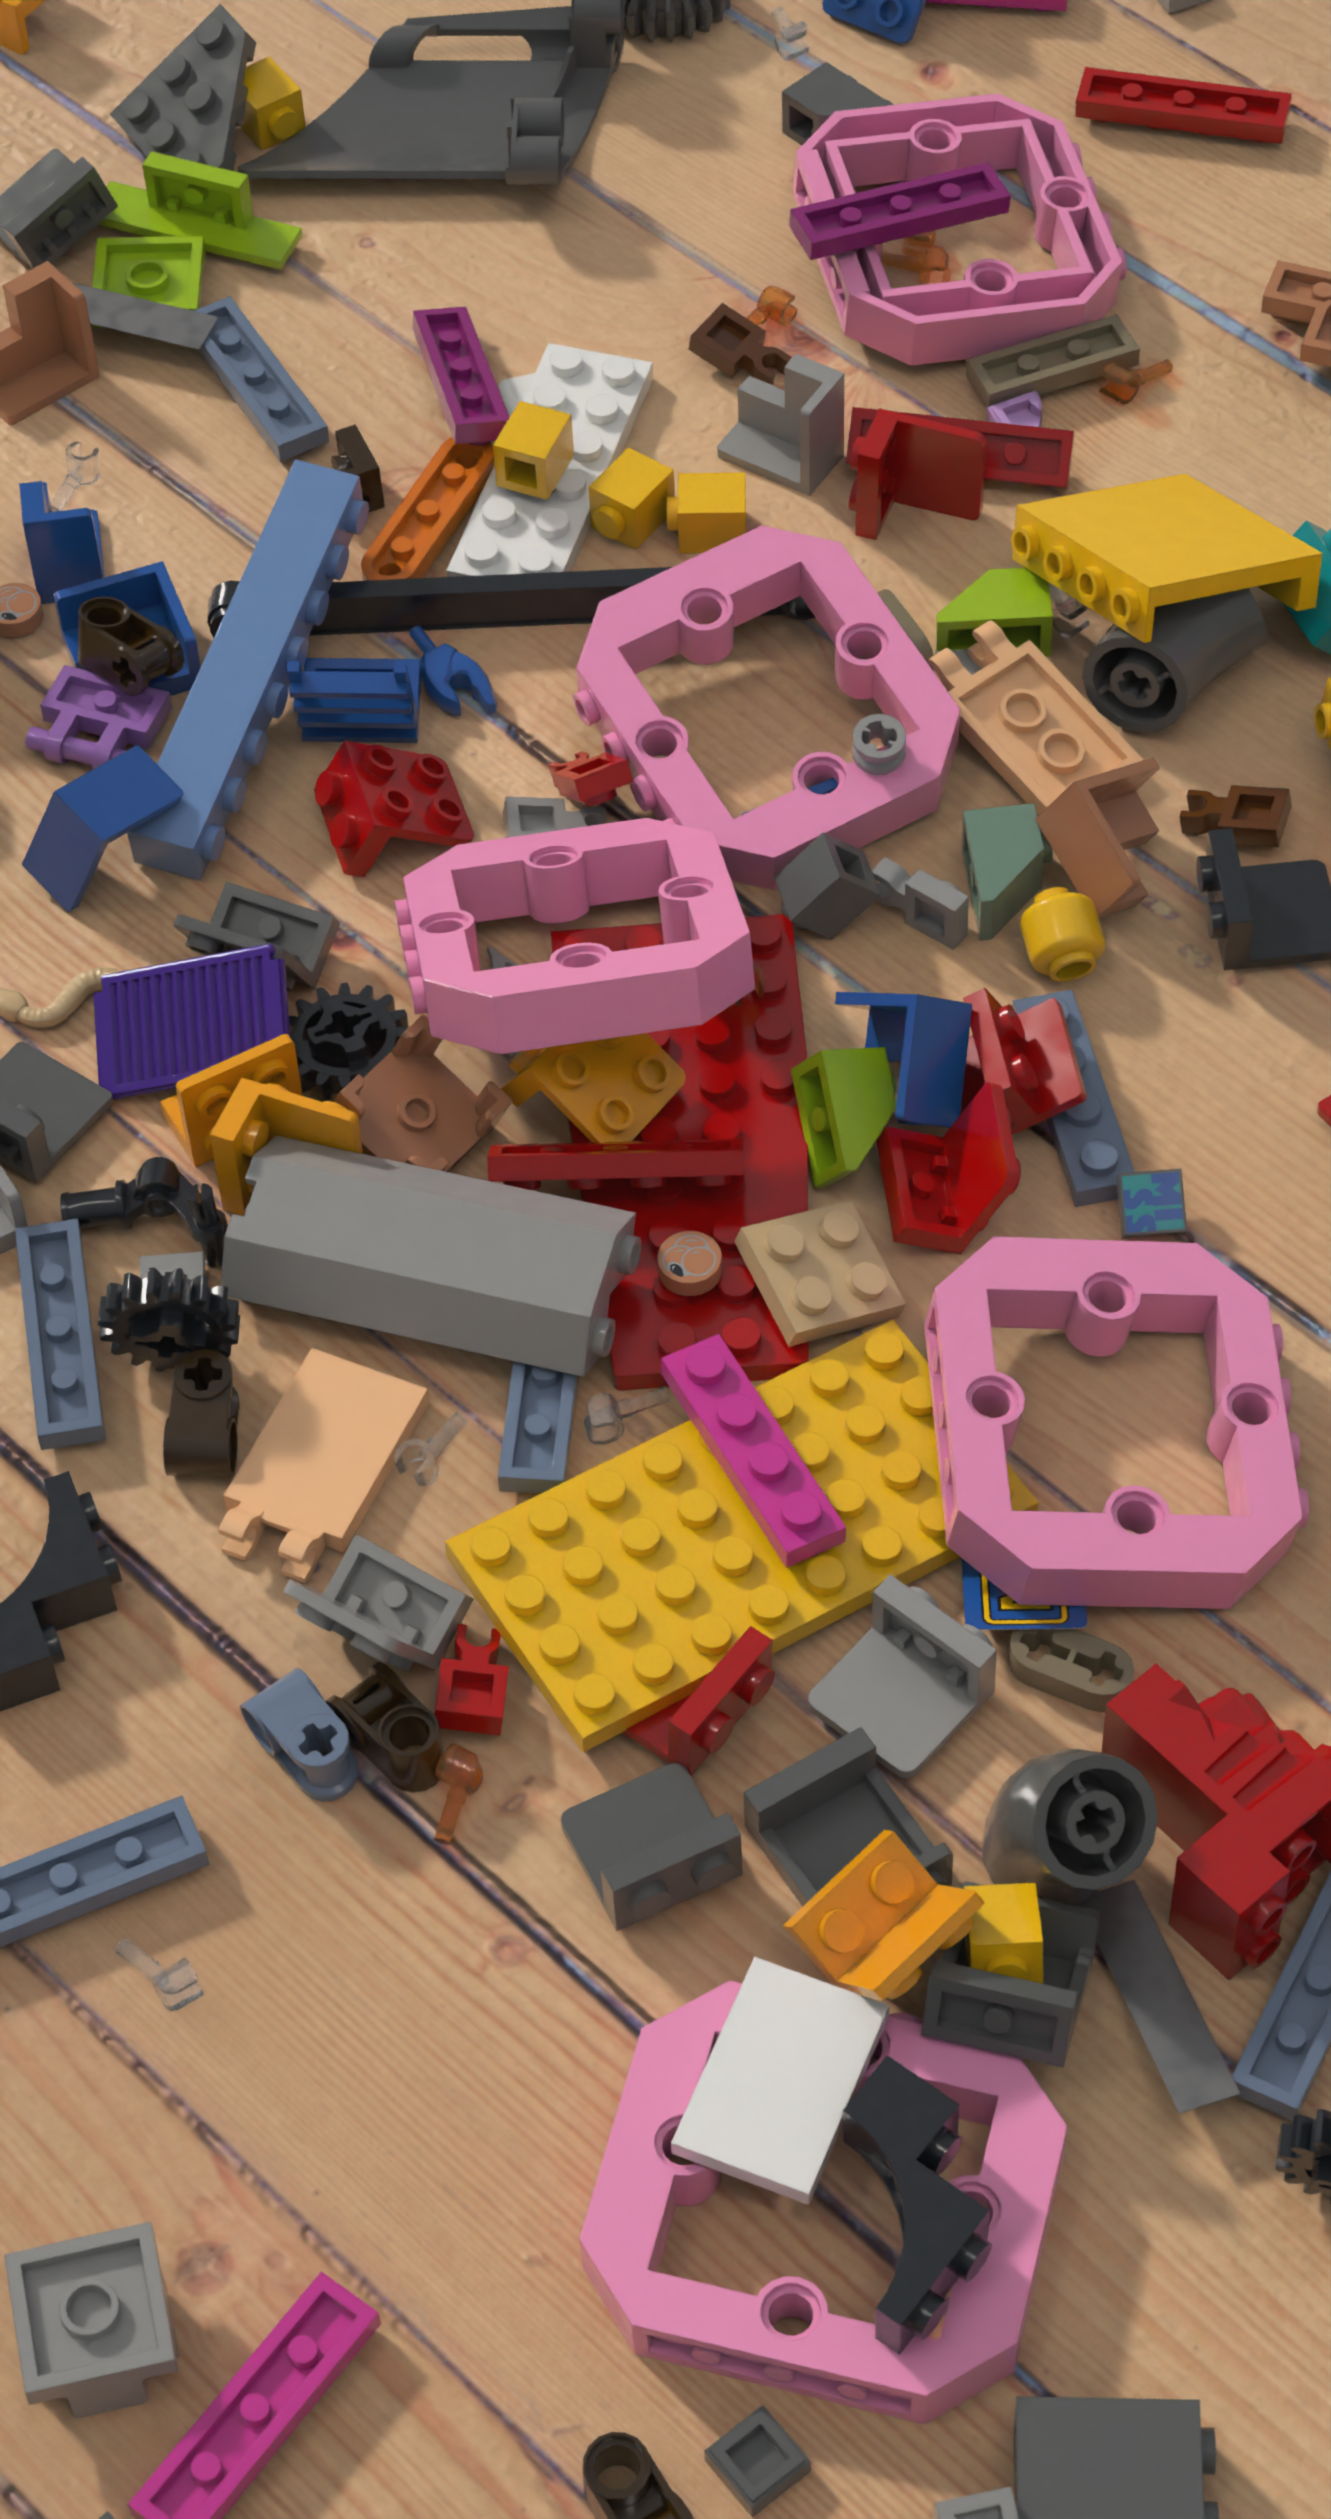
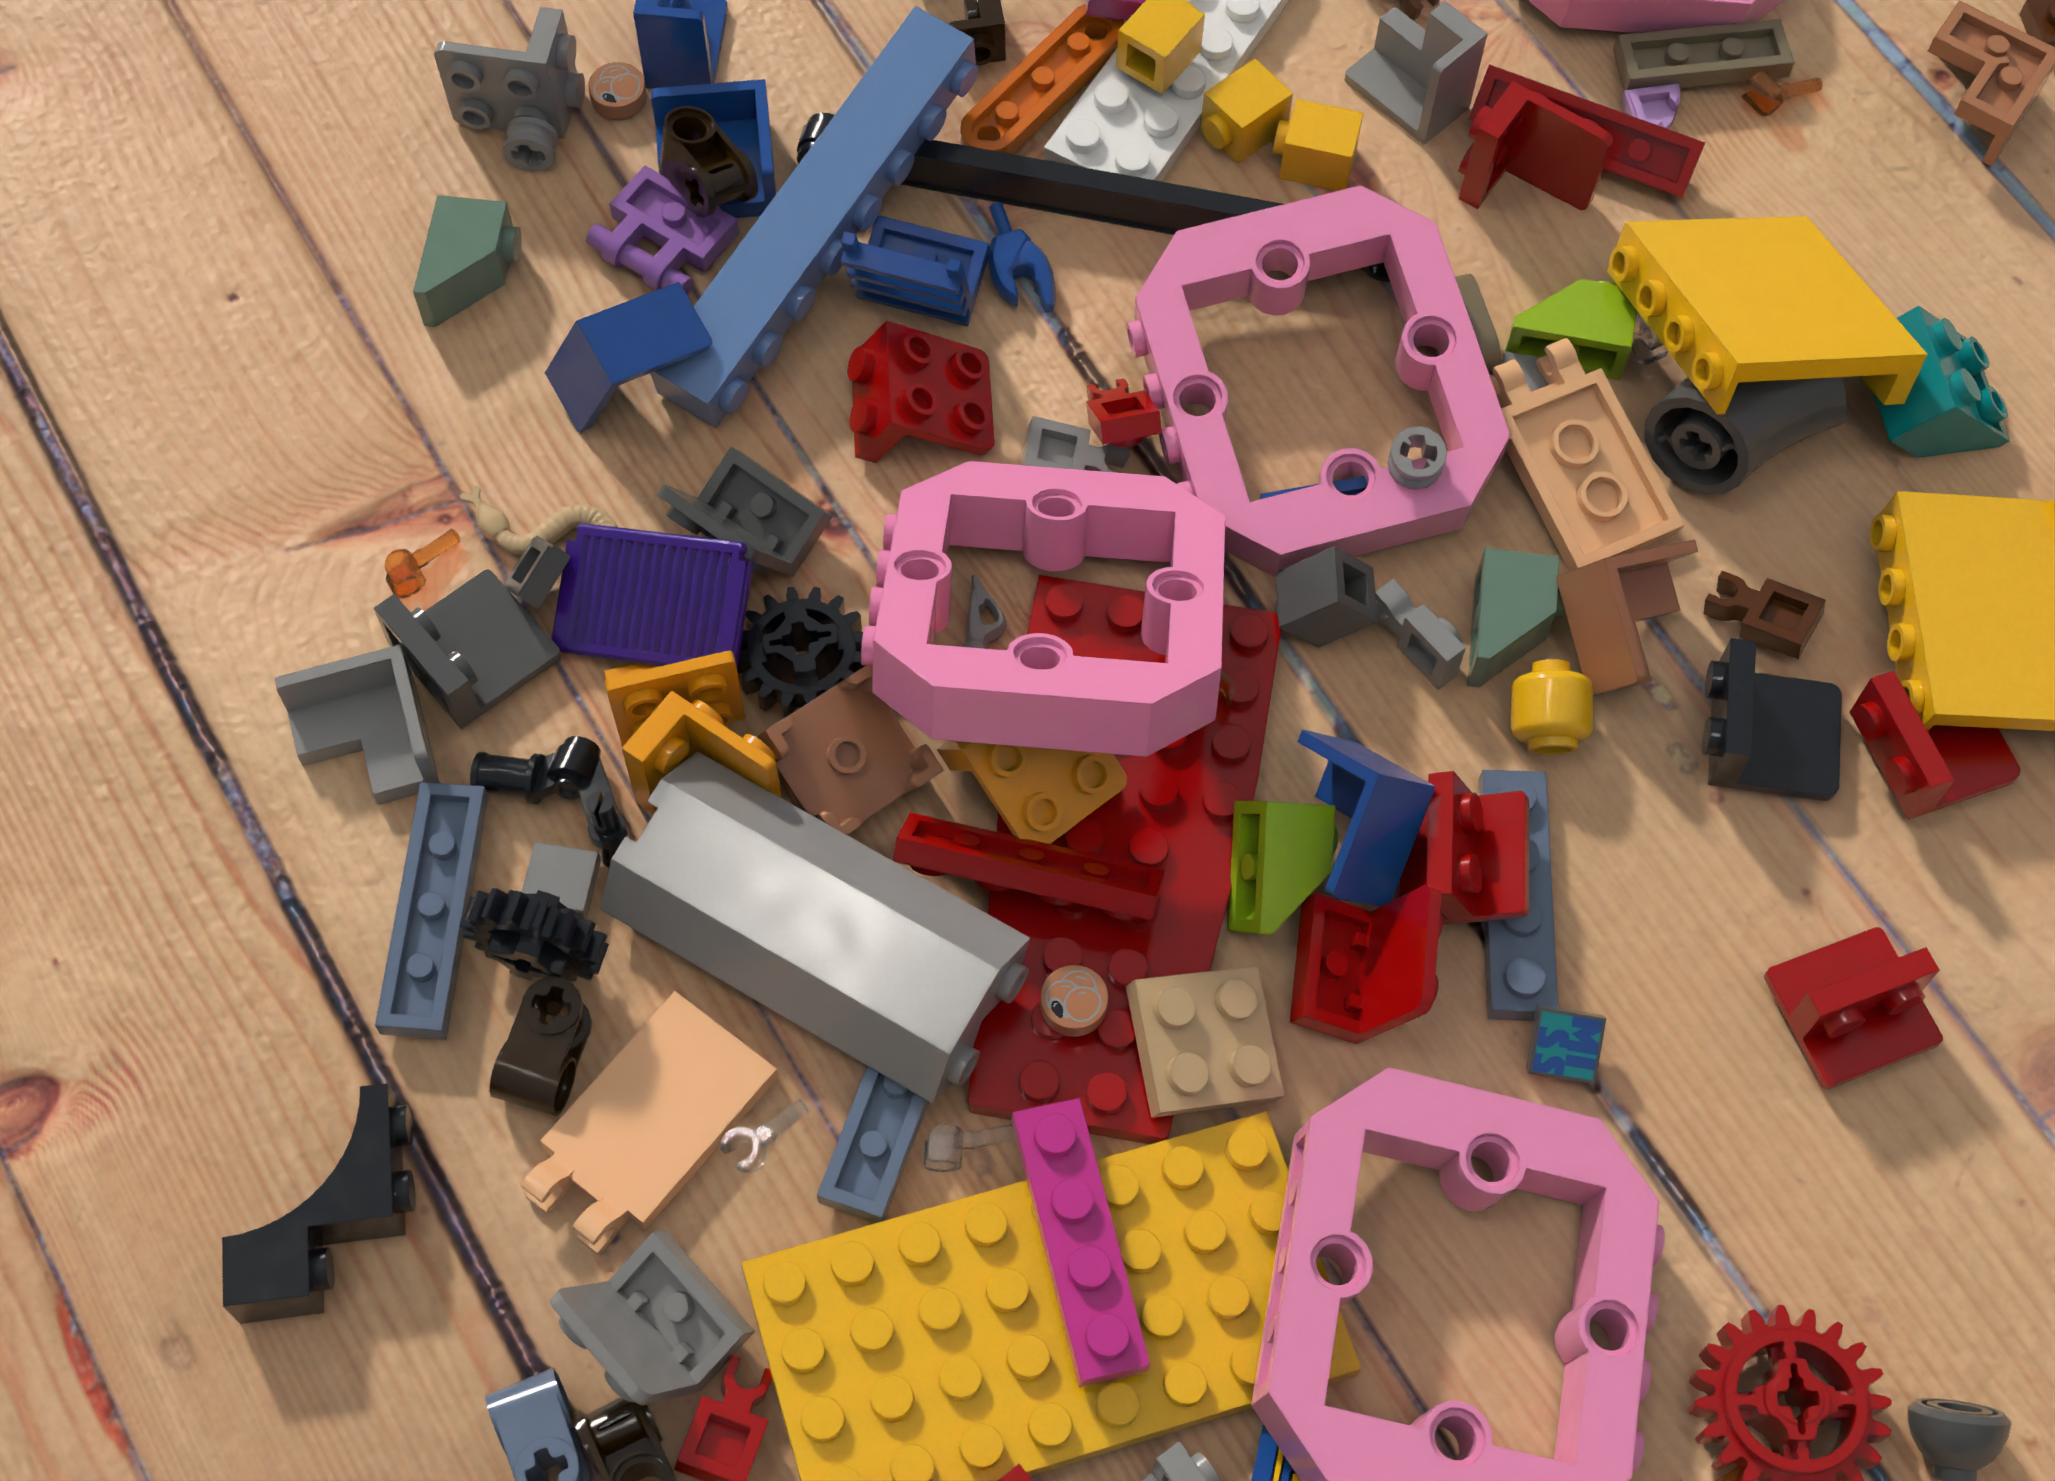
camera: 10 degrees right, 10 degrees up
(71, 1028) = (537, 571): none -> dark grey tile

